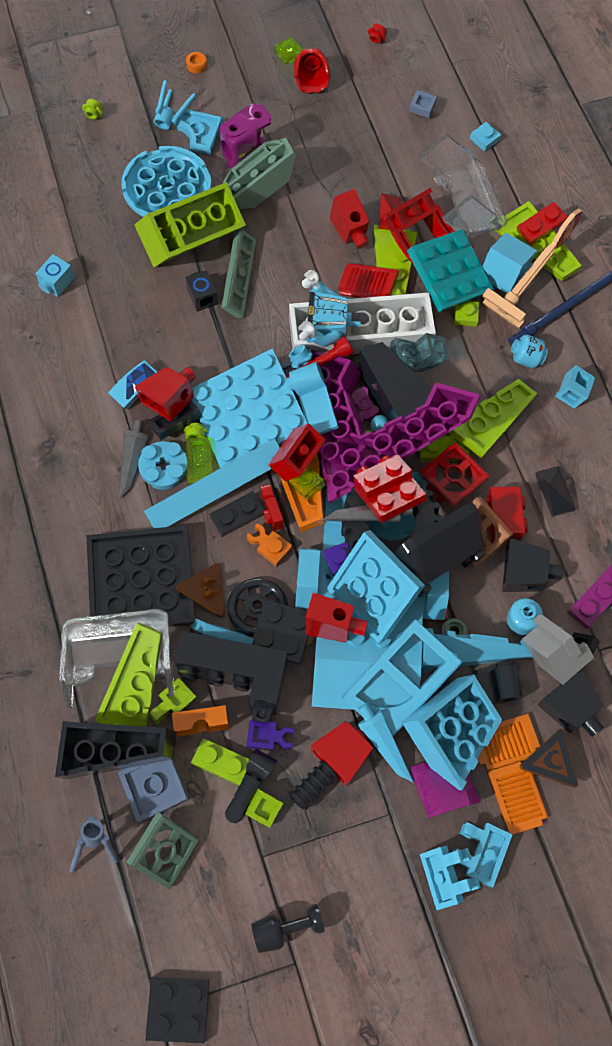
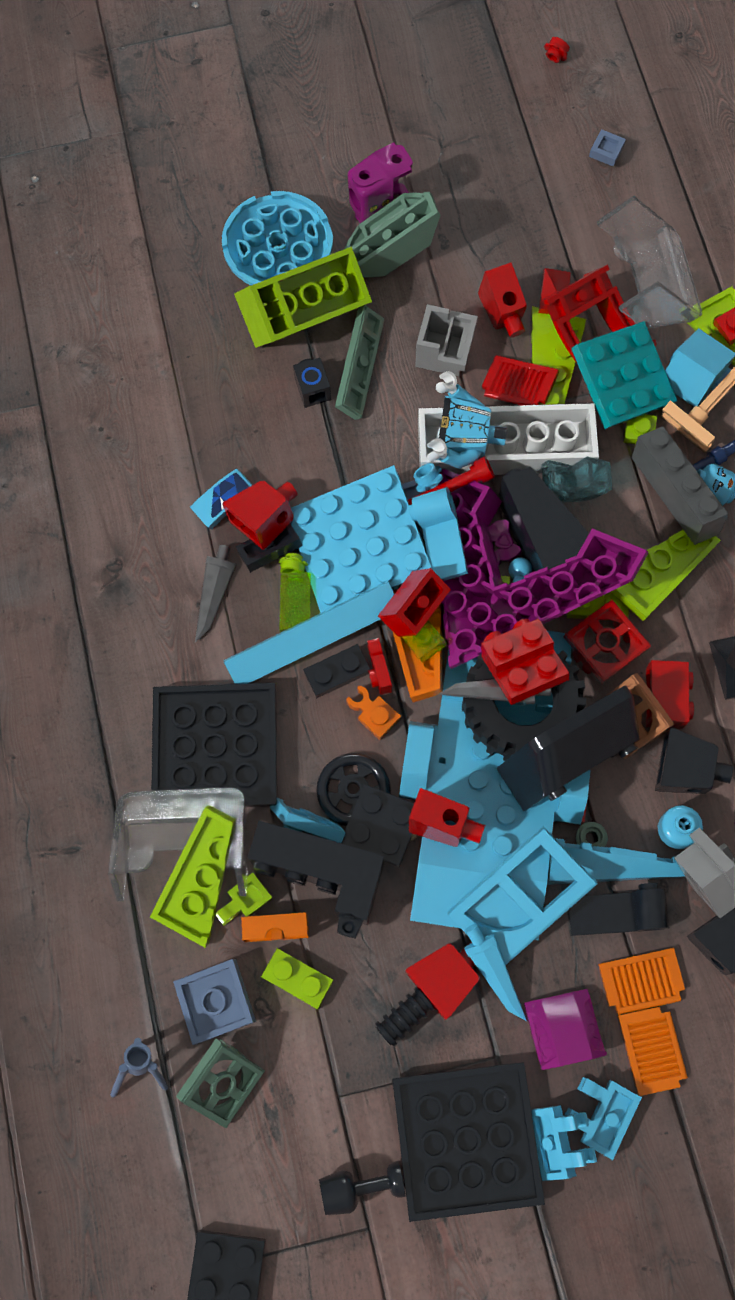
camera: 10 degrees right, 5 degrees up
(54, 275) = (133, 353): medium azure brick -> none
(93, 109) = (193, 136): lime plate -> none
(103, 748) = (158, 953): black wedge -> none
(158, 452) = (240, 590): medium azure plate -> none
(164, 114) = (280, 147): medium azure plant -> none
(196, 62) = (325, 79): orange tile -> none
(201, 130) = (325, 168): medium azure tile -> none
(206, 589) = (293, 764): reddish brown piece -> none
(259, 768) = (342, 991): black piece -> none
(263, 808) = (343, 1040): lime plate -> none
(264, 736) = (351, 952): dark purple plate -> none
(287, 50) = (442, 67): clear neon green plate -> none
(305, 251) = (445, 340): none -> light grey plate
(311, 71) = (469, 97): red hair -> none
(336, 556) = (457, 741): dark purple plate -> none
(372, 883) = (467, 1142): none -> black plate
(375, 585) = (497, 783): medium azure plate -> none
(454, 729) = (581, 963): medium azure wedge -> none
(485, 136) = (684, 195): medium azure plate -> none
(501, 352) = (679, 485): none -> dark grey brick
(553, 761) = (699, 1010): black piece -> none

